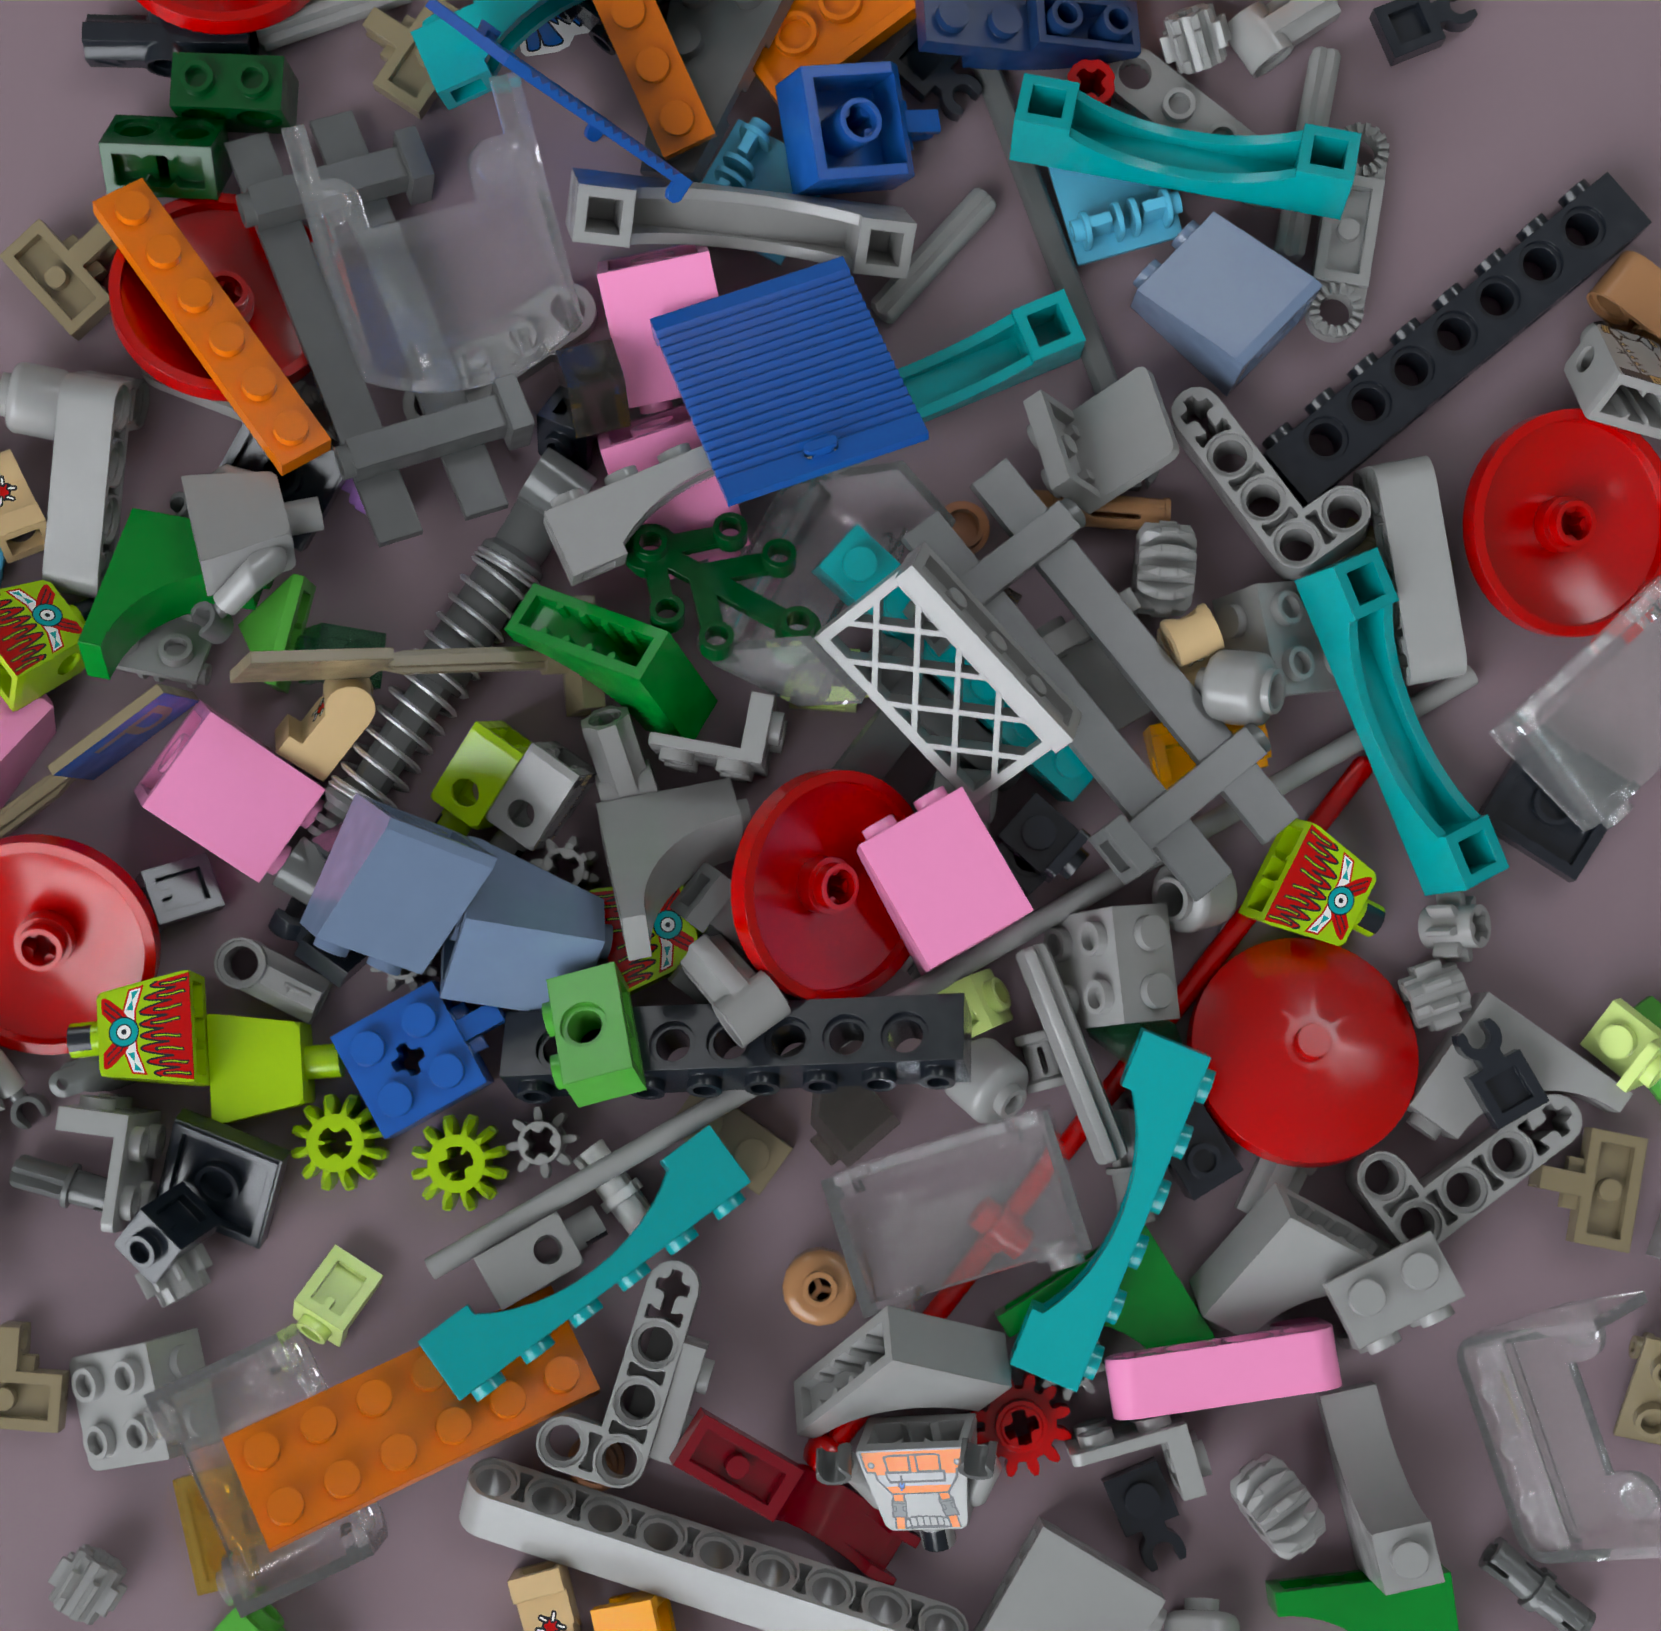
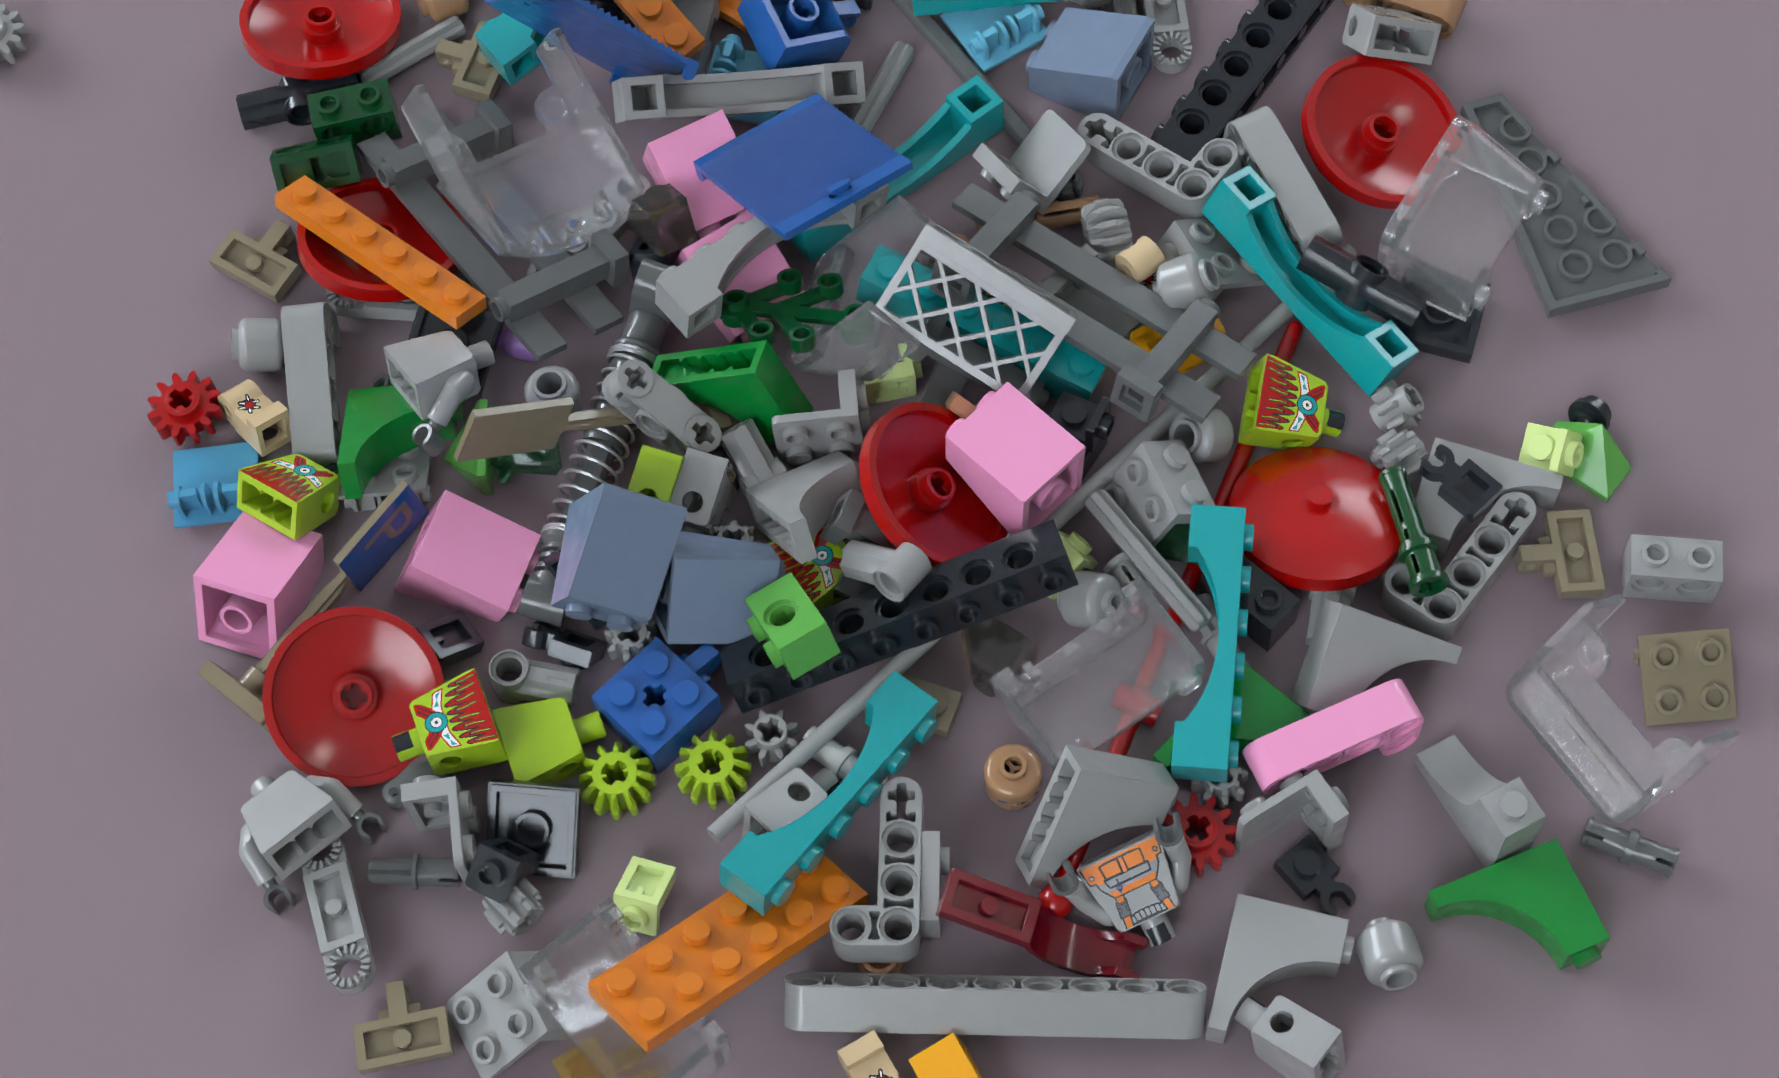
camera: 15 degrees left, 20 degrees down
(328, 727) = (535, 491): tan leg -> none
(374, 585) = (553, 383): none -> light grey head
(514, 676) = (660, 409): none -> light grey piece
(902, 780) = (959, 405): none -> nougat tile
(1277, 1506) = (1410, 832): light grey gear -> none
(1392, 1291) = (1441, 652): light grey bracket -> none
(1412, 1148) = (1416, 548): none -> dark green pin
(1468, 750) = (1361, 282): none -> black piece

